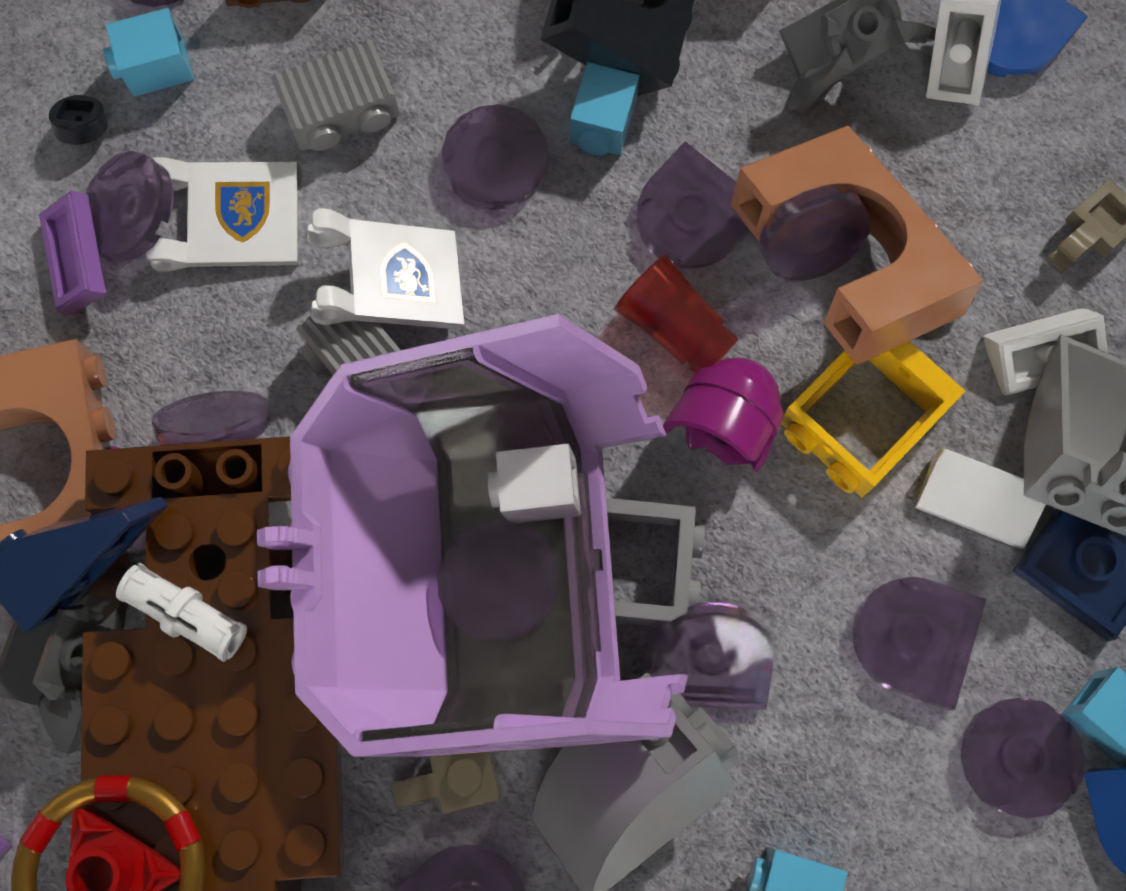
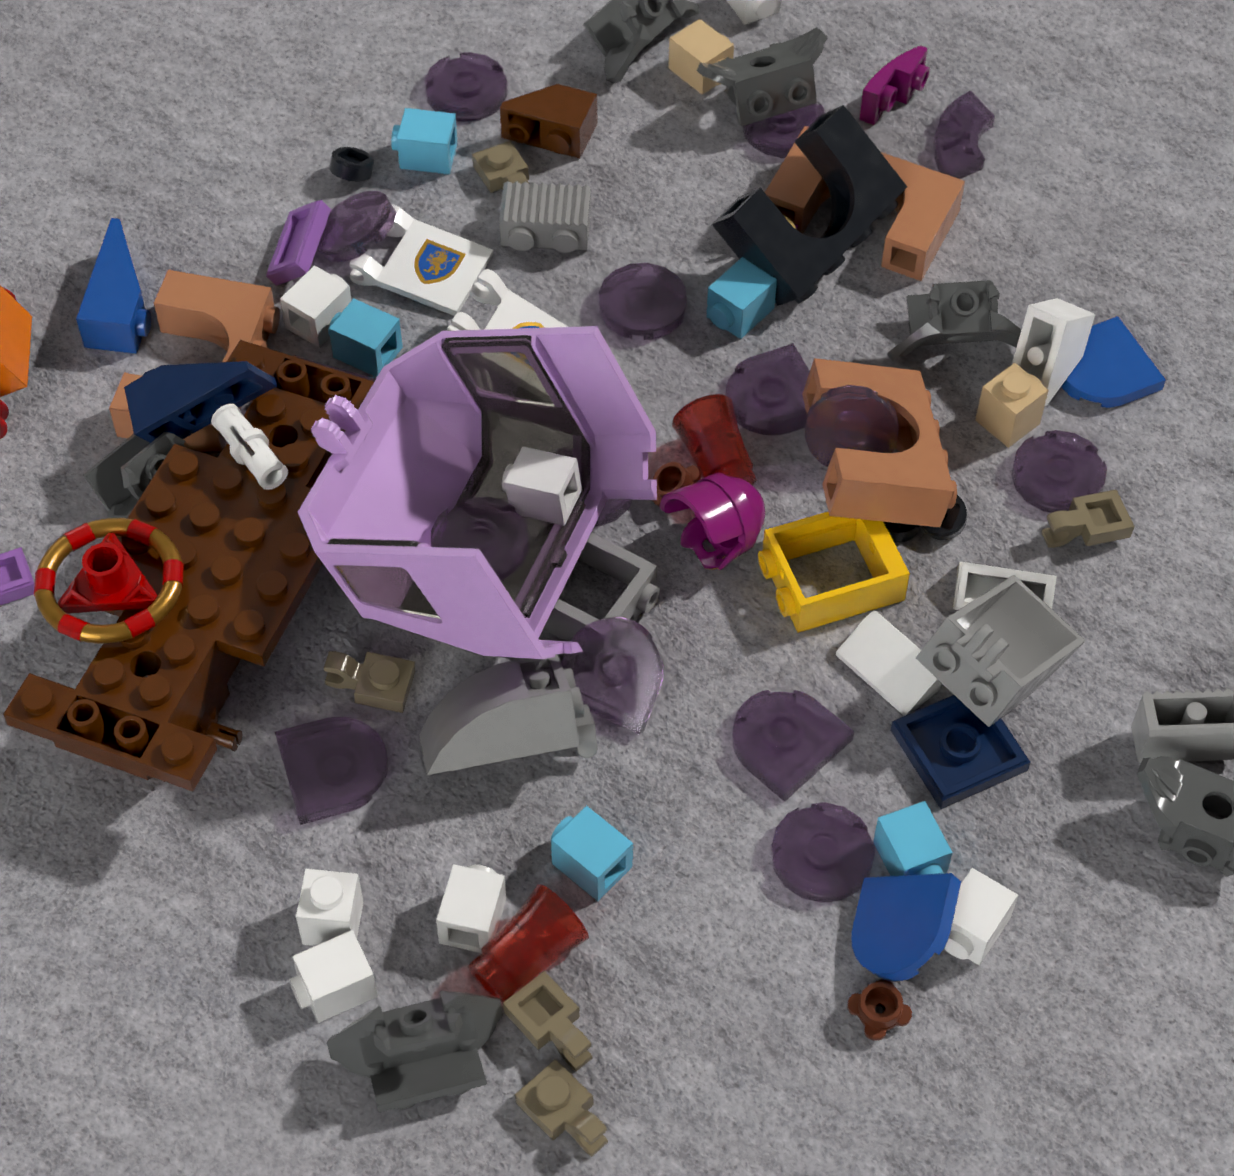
camera: 25 degrees right, 20 degrees down
(138, 329) = (313, 304): none -> white brick
(214, 347) = (365, 337): none -> medium azure brick
(252, 49) = (500, 165): none -> dark tan plate
(663, 369) = (674, 476): none -> copper plate
(955, 120) = (1011, 404): none -> tan brick
(1031, 177) = (1057, 469): none -> clear purple tile

